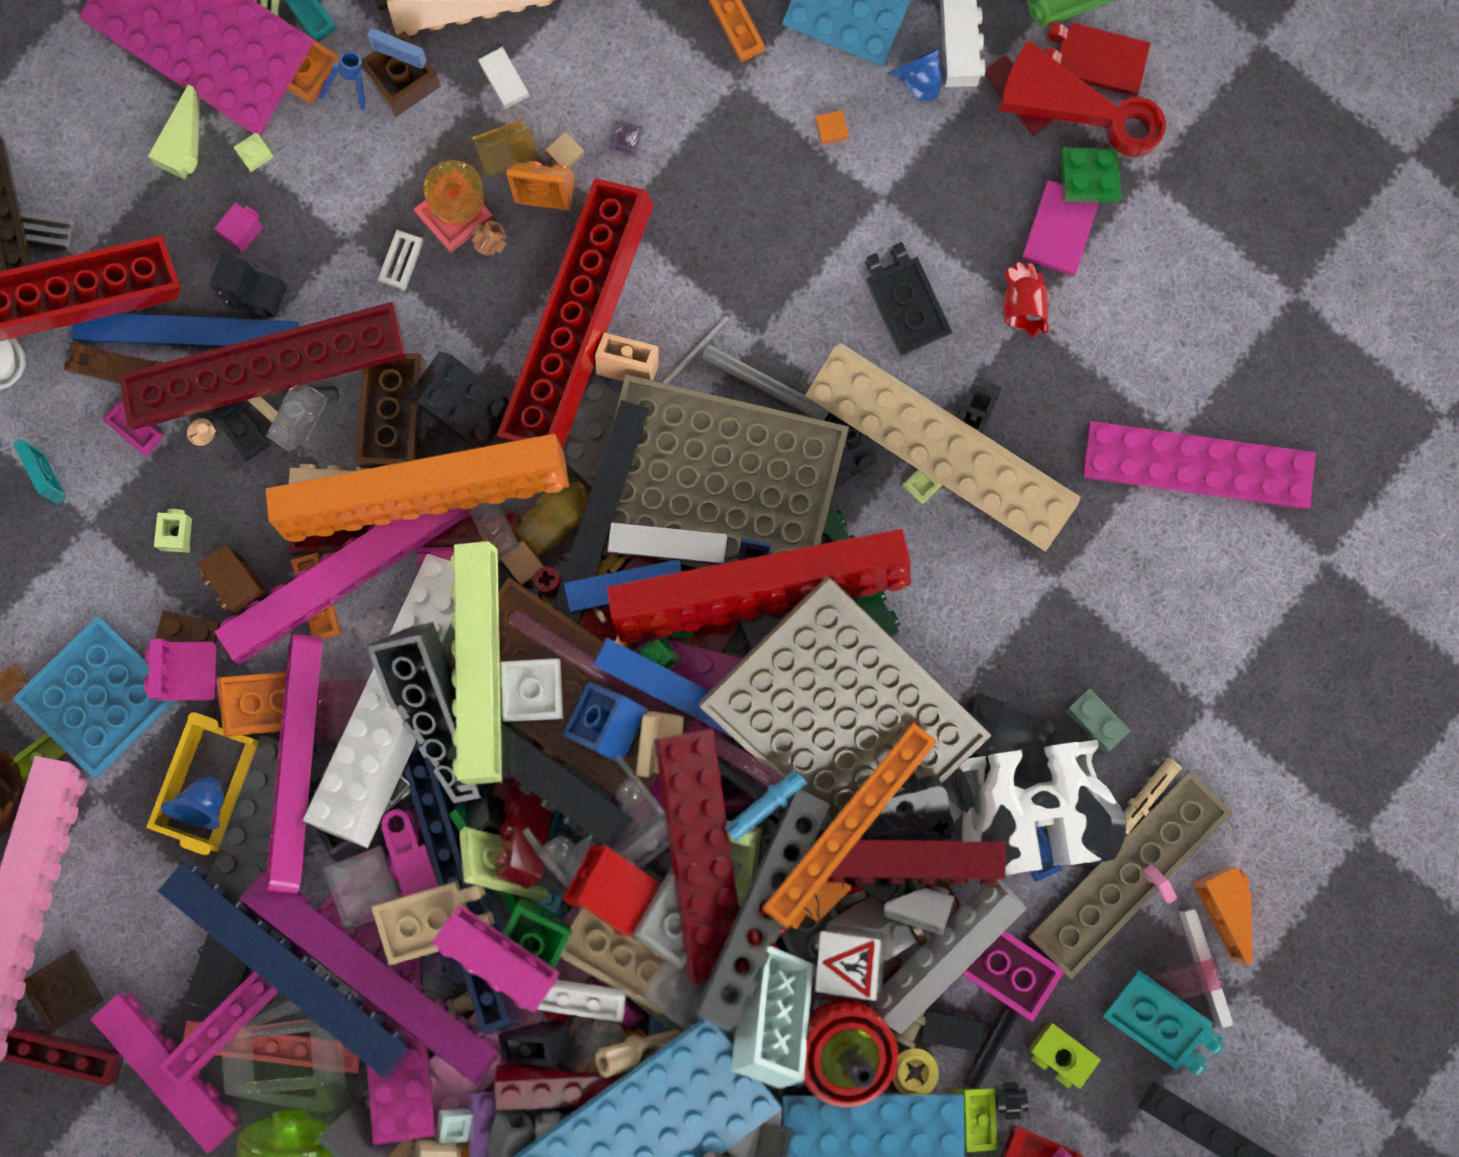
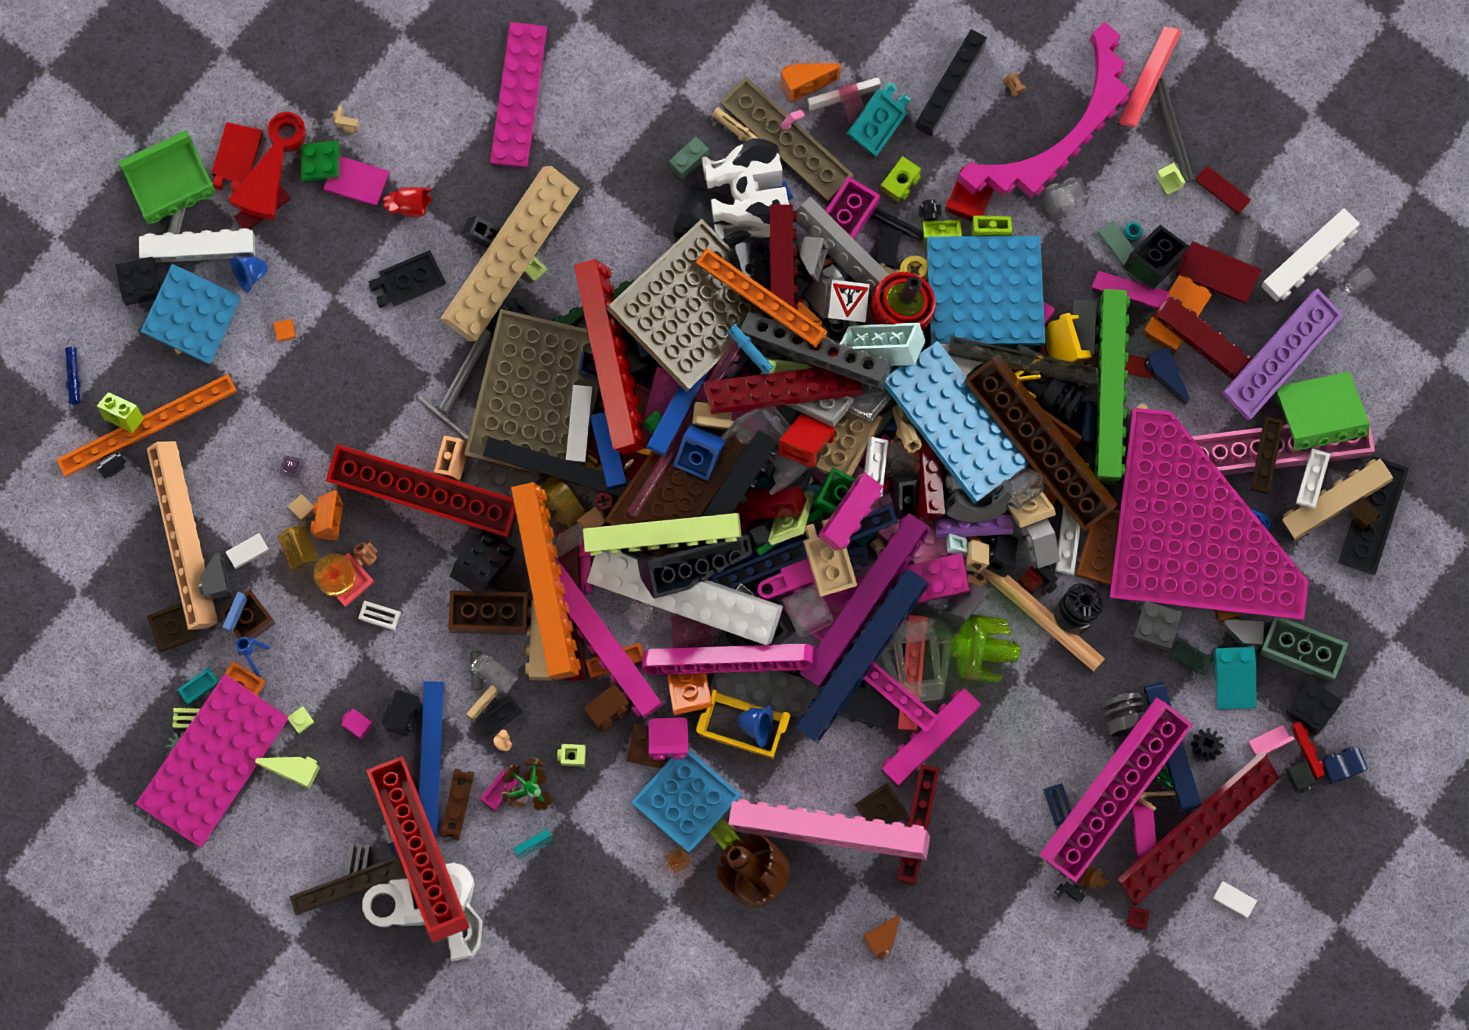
camera: 90 degrees left, 5 degrees down
(117, 462) = (534, 778): none -> reddish brown plant
(262, 366) = (459, 695): dark red plate -> none
(455, 29) = (215, 580): none -> dark grey slope
(531, 690) = (679, 500): white tile -> none
(1147, 213) = (347, 125): none -> tan bracket

